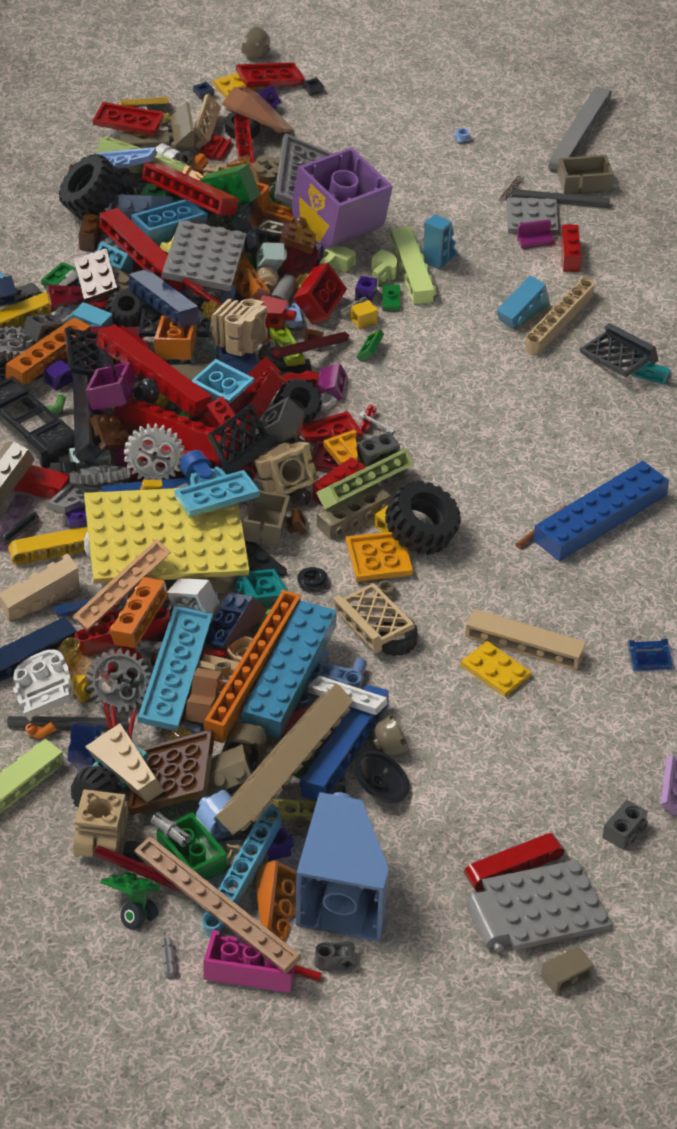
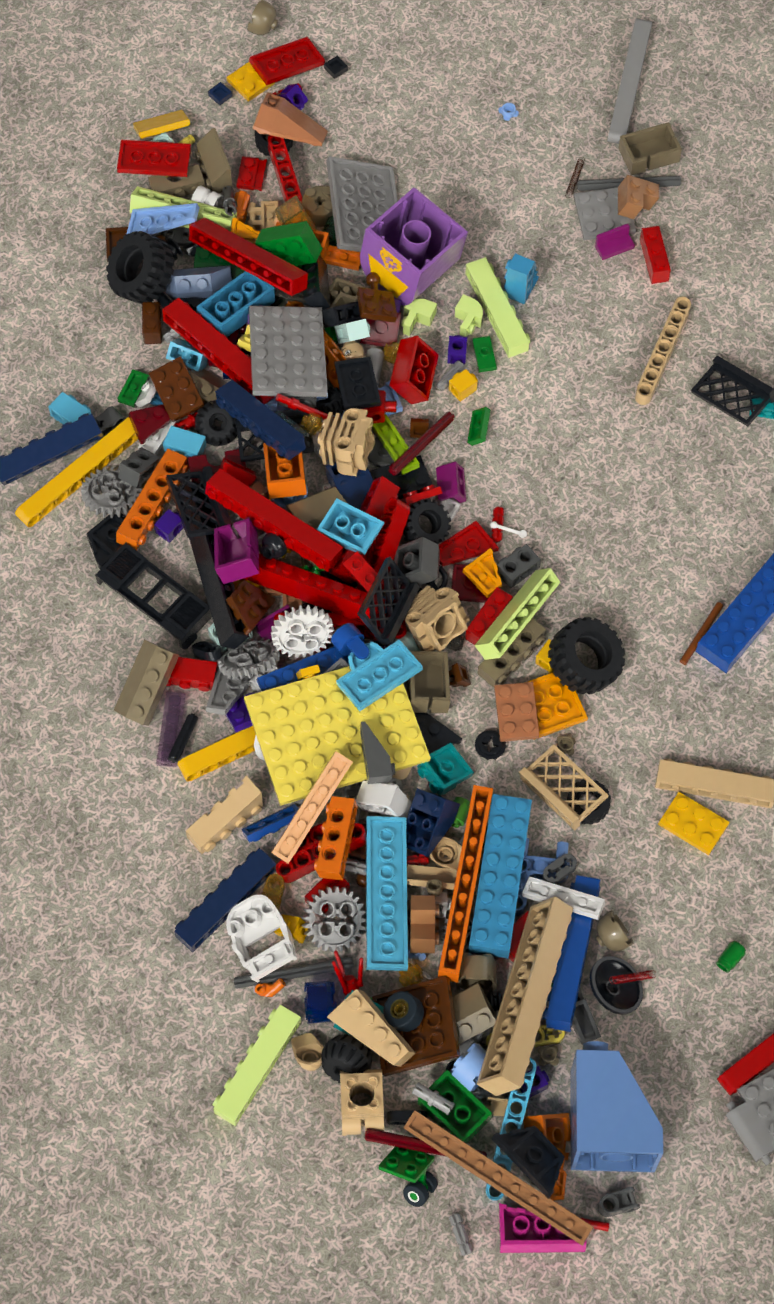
camera: 10 degrees left, 20 degrees up
(59, 405) = (179, 569): bright green arm -> none
(60, 784) = (307, 1051): none -> tan cap
(162, 754) = (403, 1011): none -> black wheel
(195, 555) = (376, 759): none -> dark grey slope
(206, 121) = (236, 143): tan fence -> none
(256, 889) = (533, 1156): none -> black wing
(263, 287) = (357, 383): none -> black plate
(344, 554) = (516, 711): none -> nougat plate
(352, 674) = (562, 872): none -> dark grey beam
(401, 773) = (636, 976): none -> red piece
(504, 776) = (731, 956): none -> green piece
(524, 303) = (623, 342): dark azure wedge -> none
(564, 201) = (635, 195): none -> medium nougat brick

